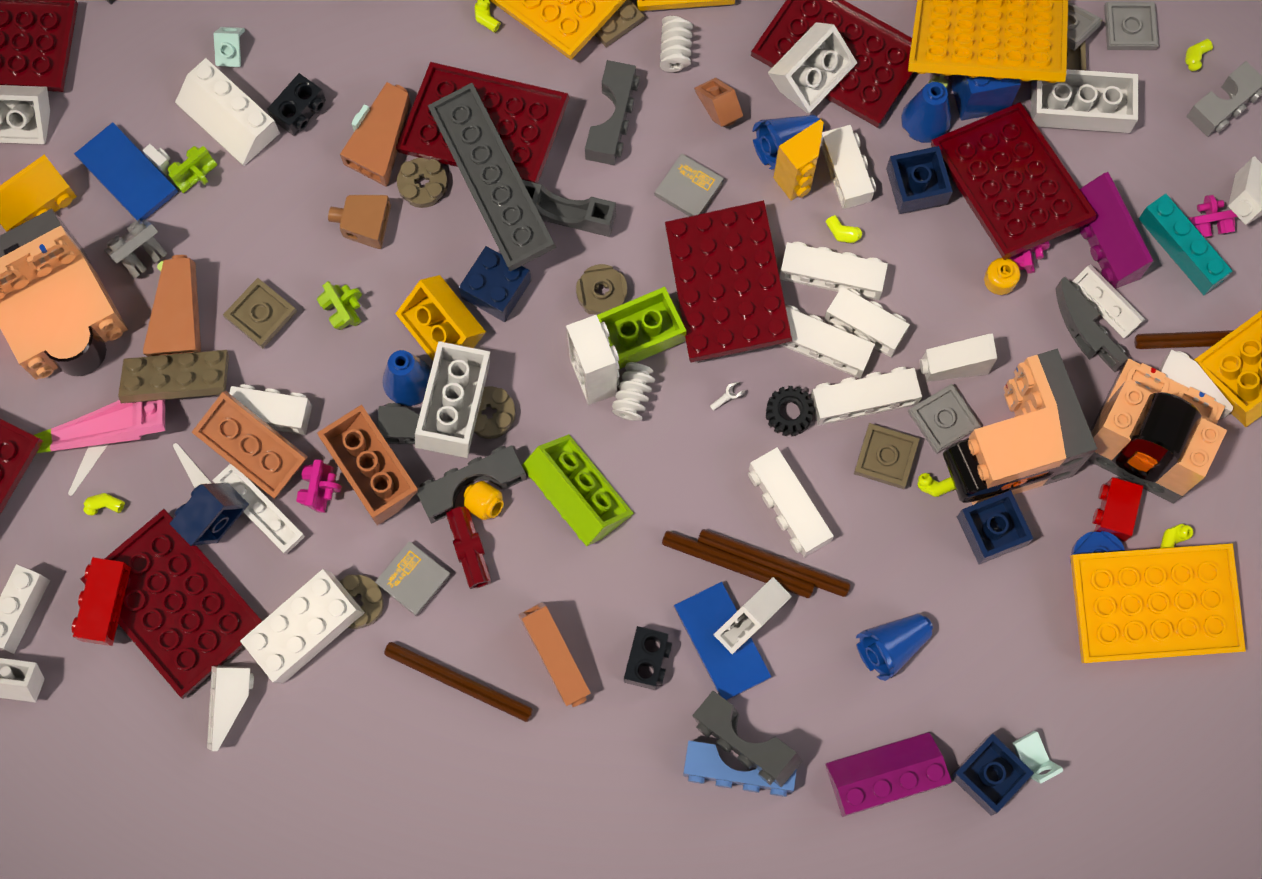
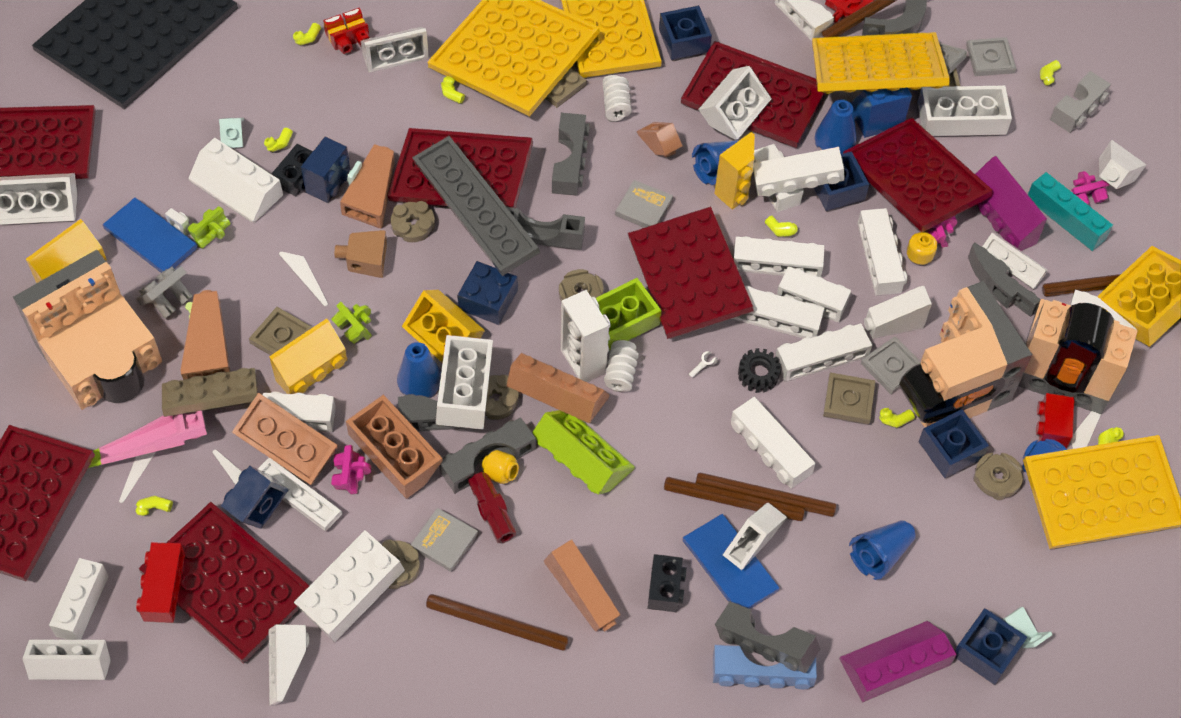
camera: 10 degrees left, 15 degrees down
(282, 66) = (279, 143): none -> neon yellow arm
(285, 349) = (308, 358): none -> yellow slope
(290, 227) = (302, 269): none -> white sticker
(328, 110) = (326, 169): none -> dark blue brick
(557, 411) = (556, 388): none -> nougat slope
(871, 169) = (798, 172): none -> white brick
(954, 274) = (881, 251): none -> white brick
(1055, 568) = (994, 487): none -> dark tan plate
(1148, 524) = (1084, 432): none -> white sticker

